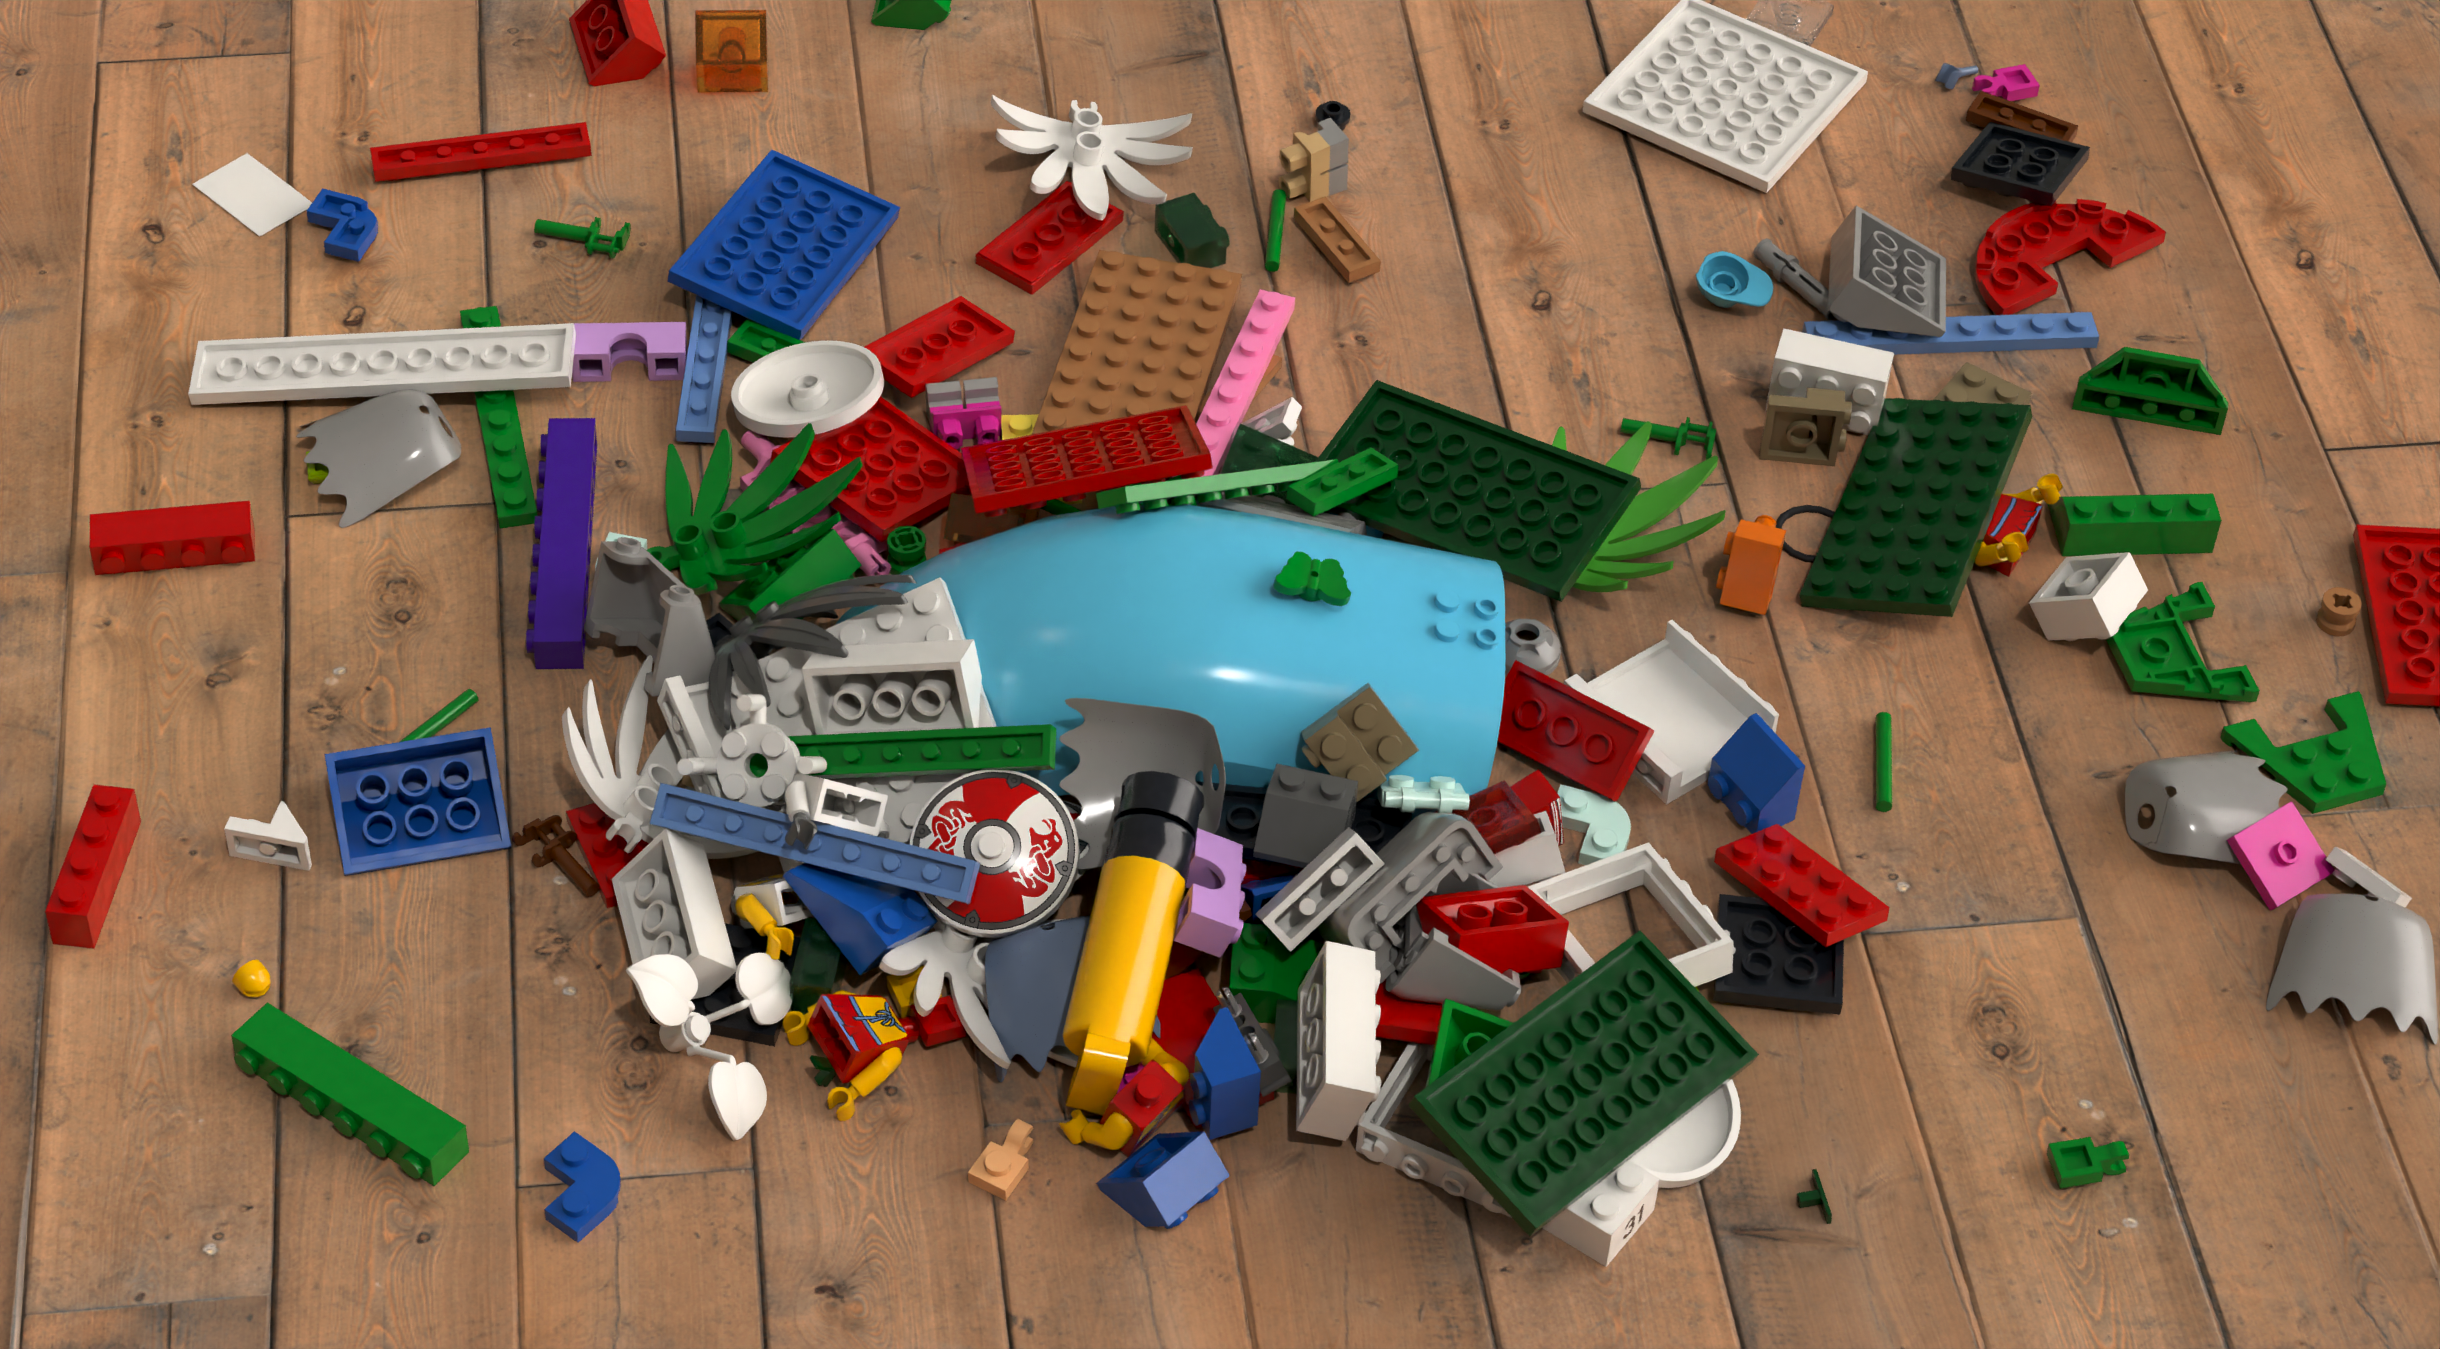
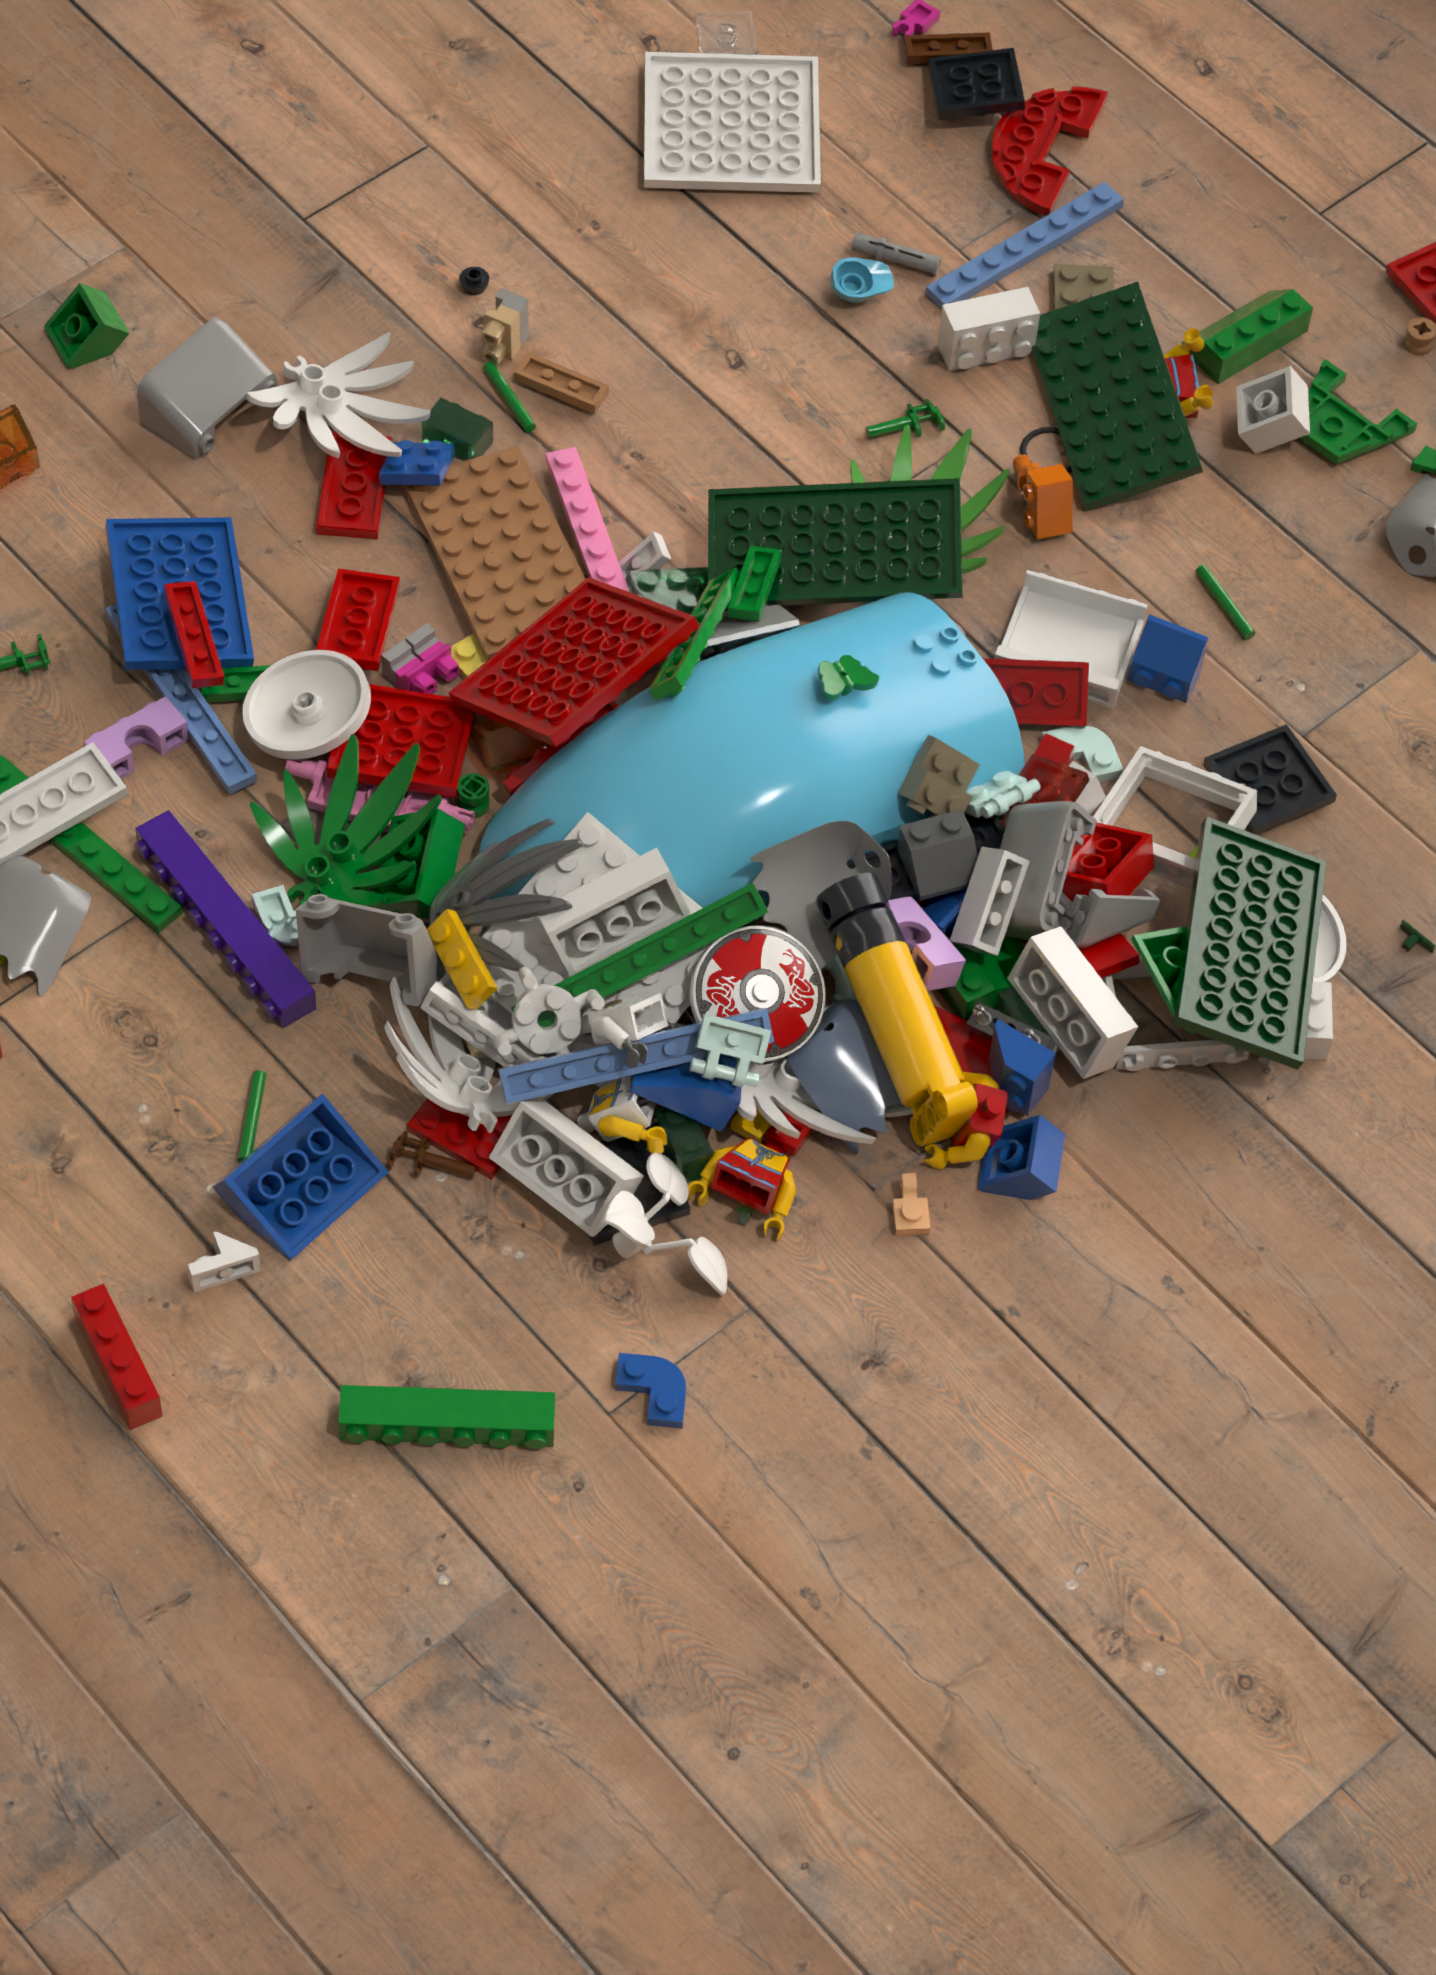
camera: 35 degrees left, 10 degrees up
(252, 979) = (304, 1374): yellow hinge -> none
(720, 666) = (461, 959): none -> yellow plate
(753, 277) = (193, 634): none -> red plate
(916, 873) = (734, 1040): none -> light aqua plate
(957, 72) = (200, 387): none -> light grey windscreen
(1121, 240) = (418, 464): none -> blue plate
(1801, 885) = (1250, 722): red plate -> none
(1805, 428) = (1001, 373): dark tan plate -> none
(1885, 278) = (959, 225): light grey slope -> none
(1950, 74) = (872, 30): sand blue hand -> none
(2153, 390) = (1195, 226): green wedge -> none

